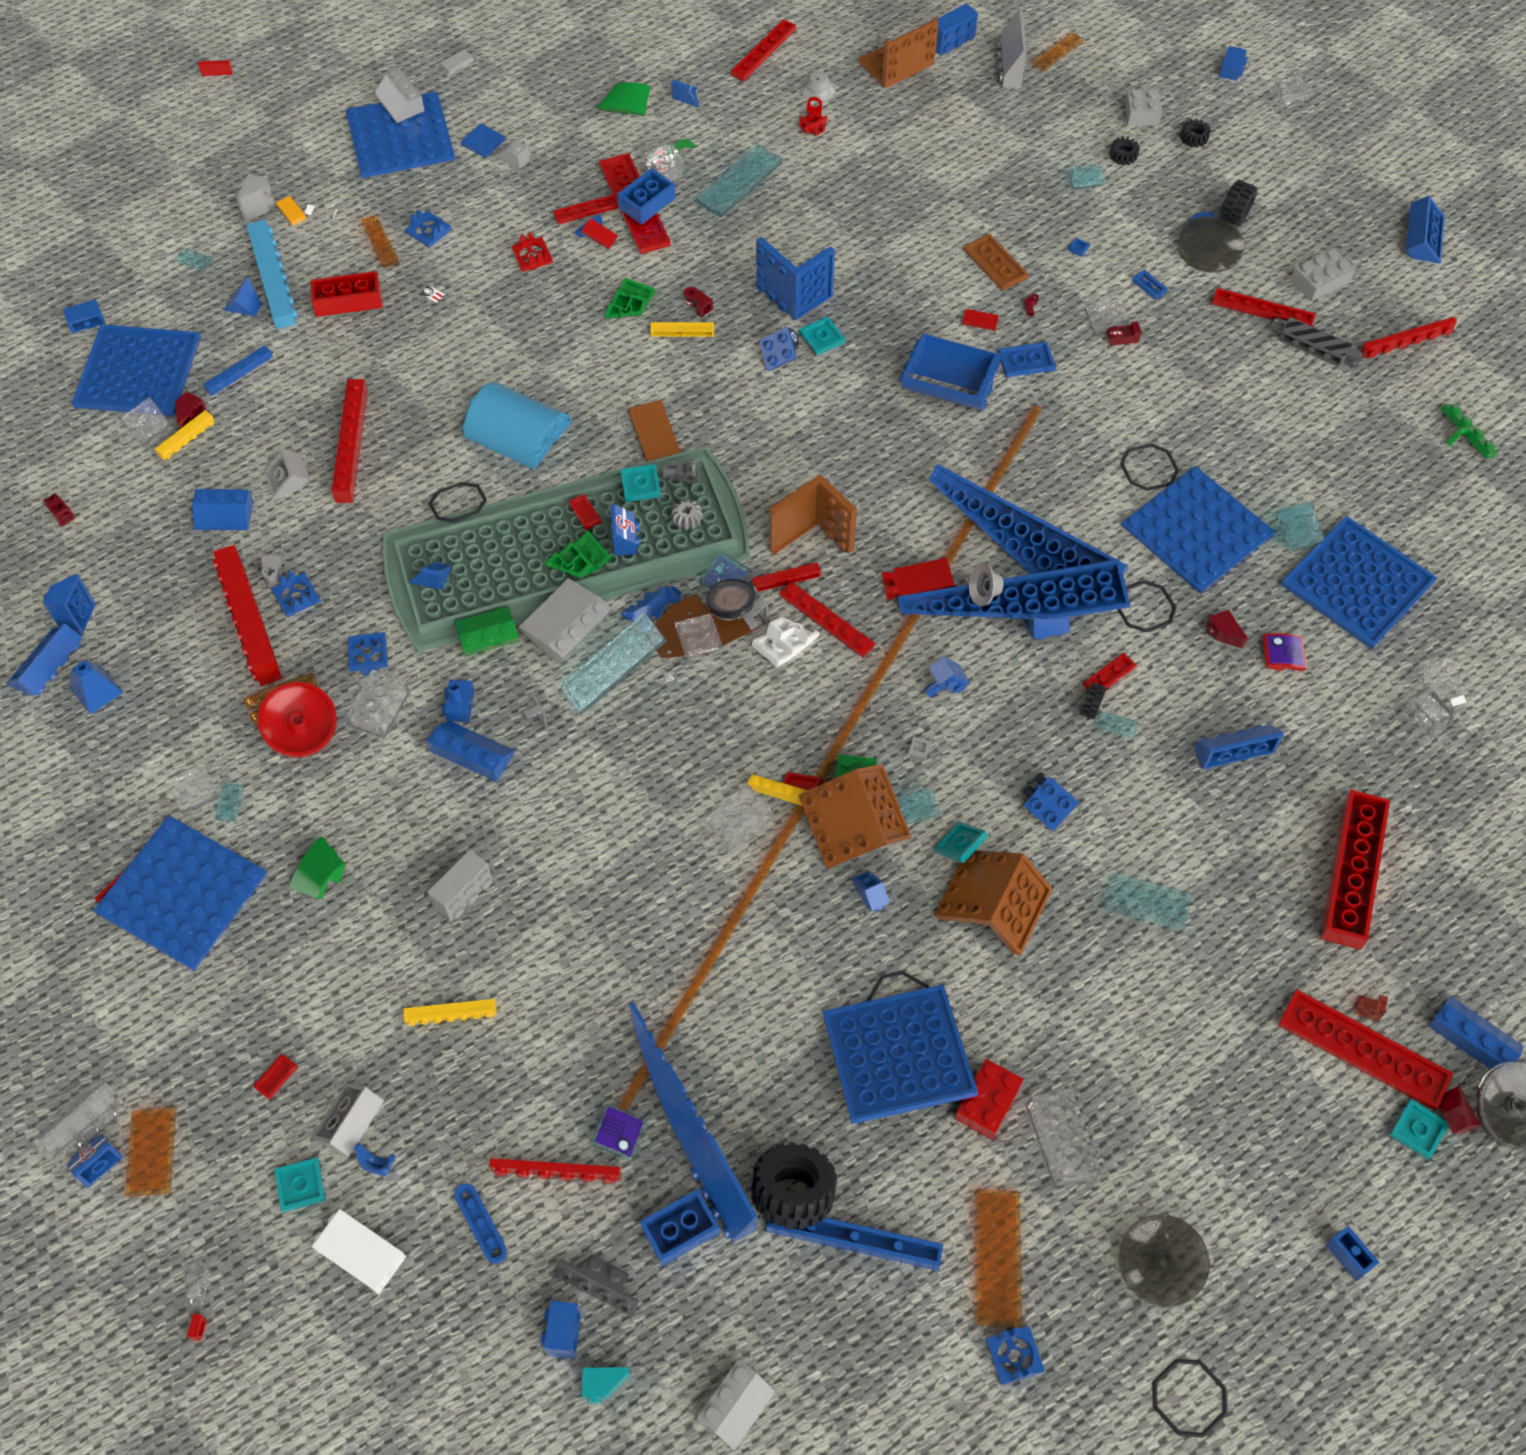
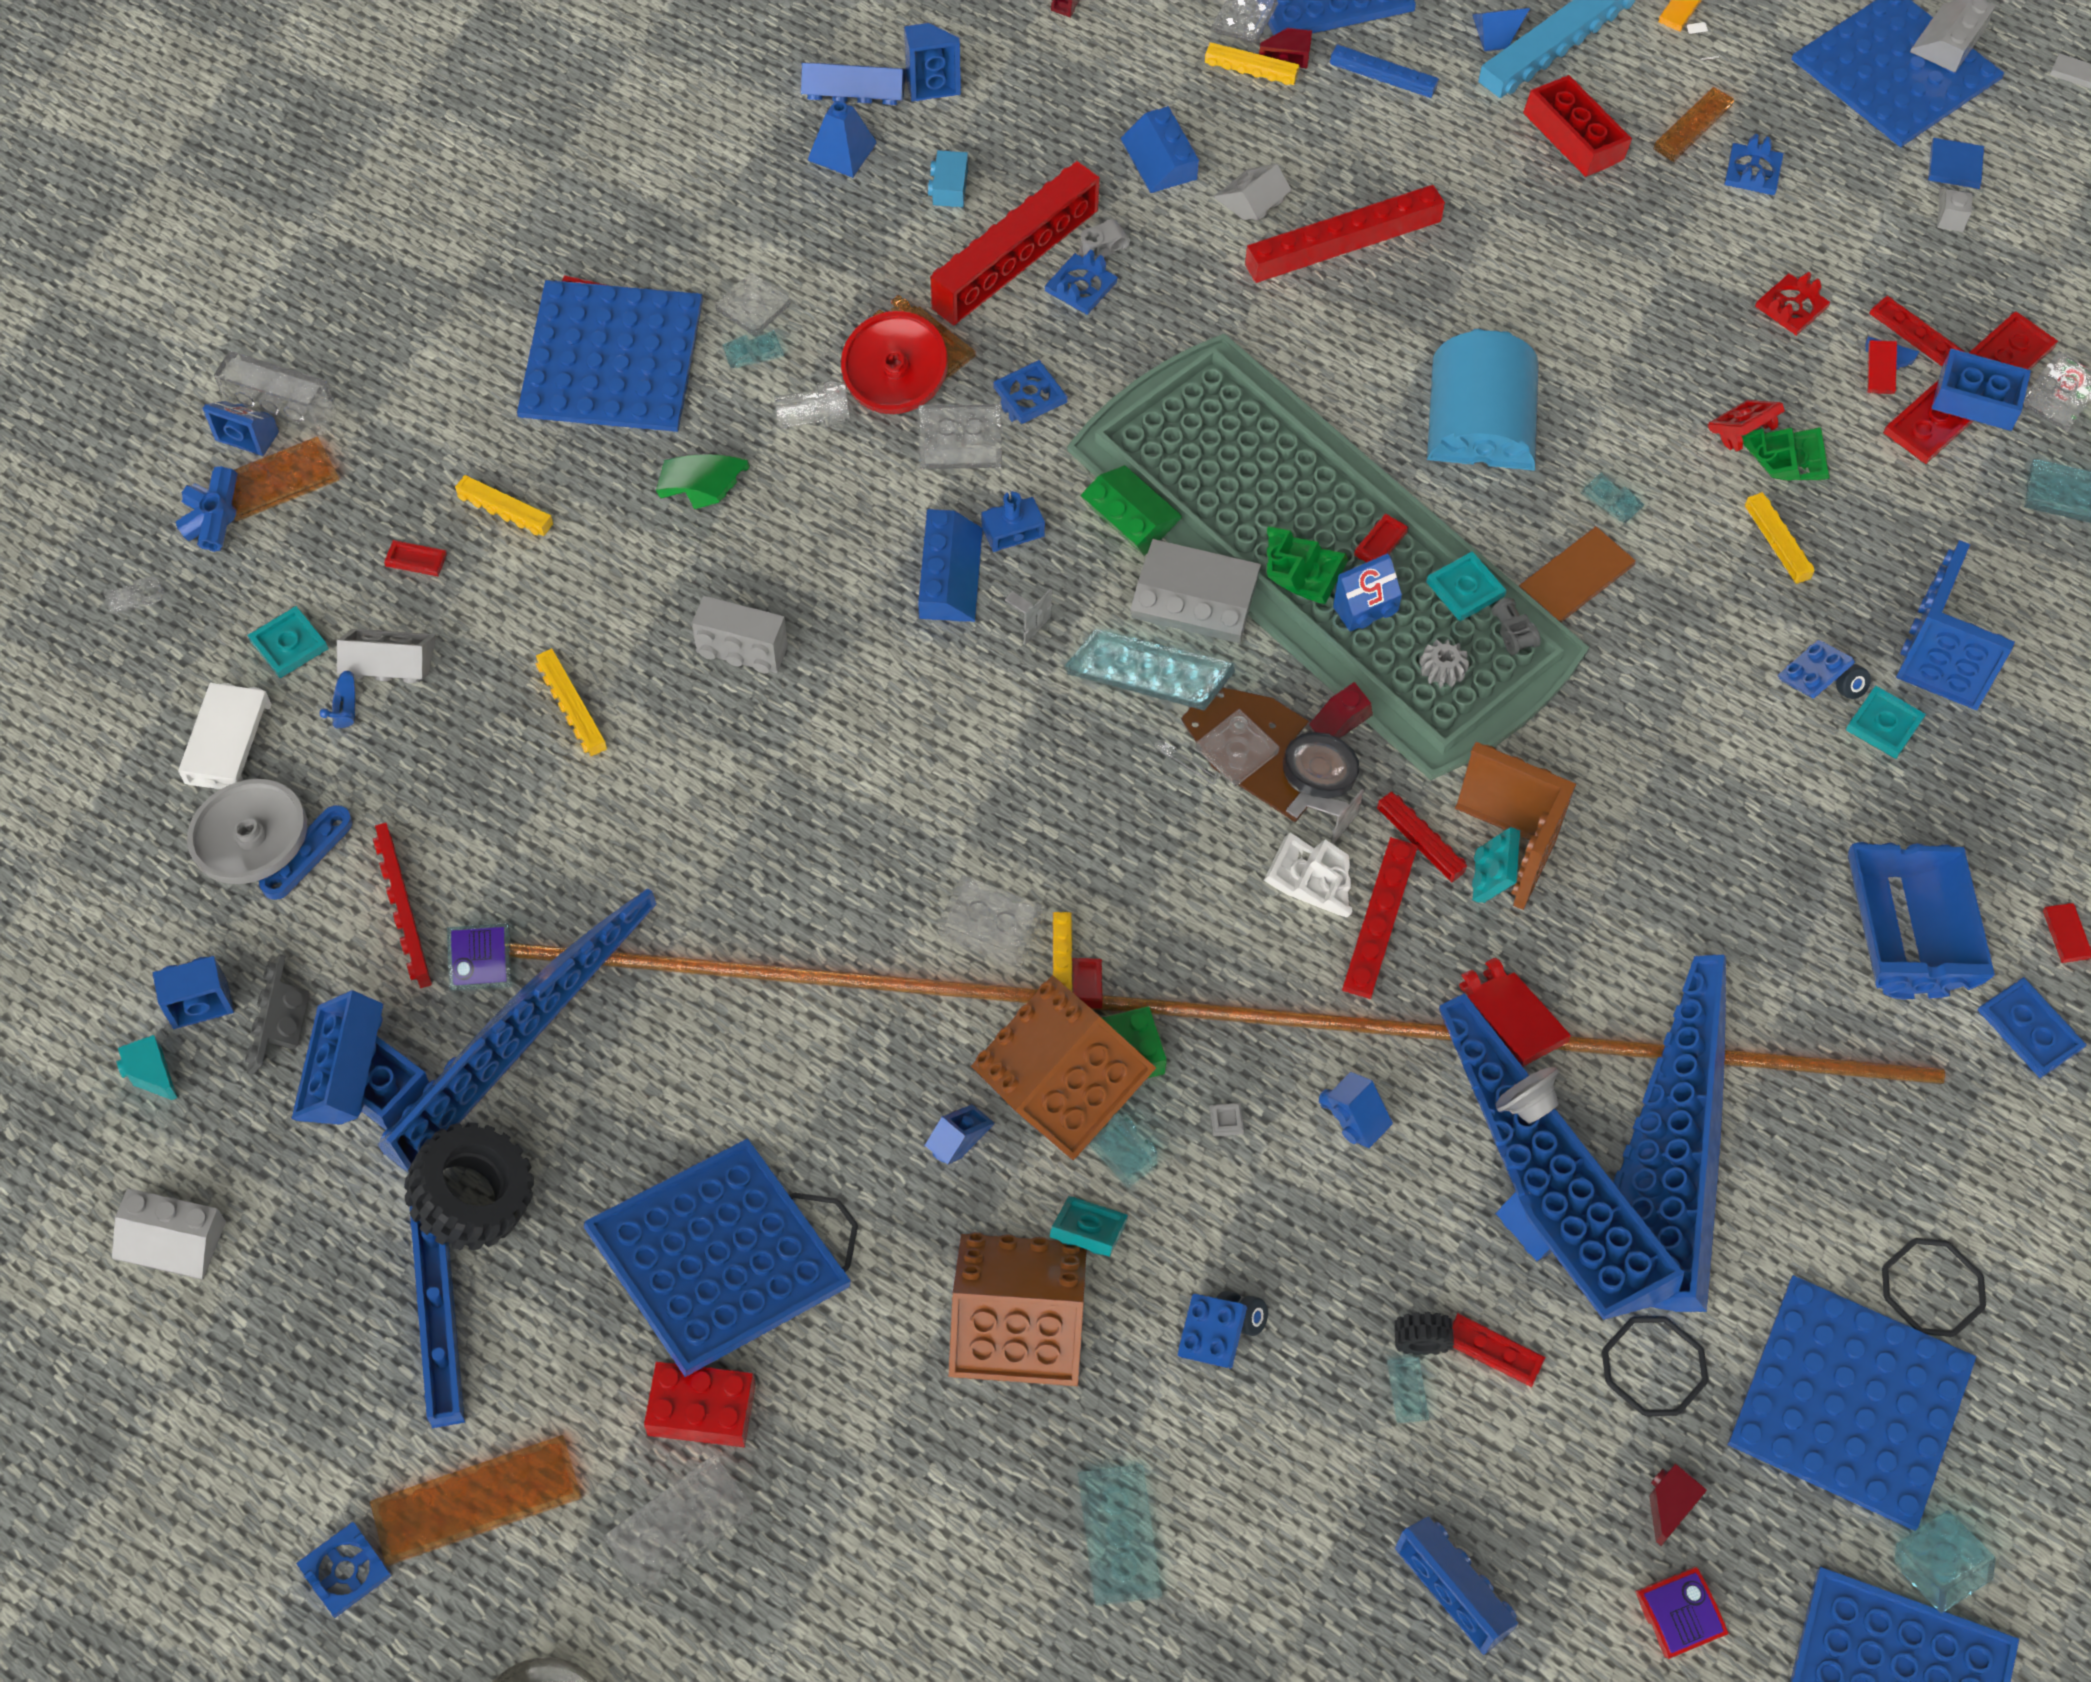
camera: 65 degrees right, 0 degrees up
(149, 1205) = (210, 508): none -> blue piece
(166, 634) = (950, 178): none -> dark azure brick
(196, 1327) = (82, 616): red tile -> none
(265, 1003) = (503, 505): none -> yellow piece
(305, 772) = (823, 405): none -> clear piece
(432, 293) = (1647, 221): sticker -> none
(433, 576) = (1182, 413): blue slope -> none
(448, 1257) = (247, 831): none -> light grey dish
(463, 516) = (1304, 413): black piece -> none
(604, 318) = (1753, 413): none -> red piece
(617, 391) = (1619, 503): none -> clear light blue slope
(653, 603) = (1281, 686): blue plant -> none
(668, 1240) = (338, 1060): none -> blue slope
(690, 578) = (1343, 712): none -> dark red slope
(699, 300) = (1841, 543): dark red leg -> none
(724, 568) = (1382, 755): clear light blue slope -> none
(827, 546) = (1496, 865): none -> teal plate

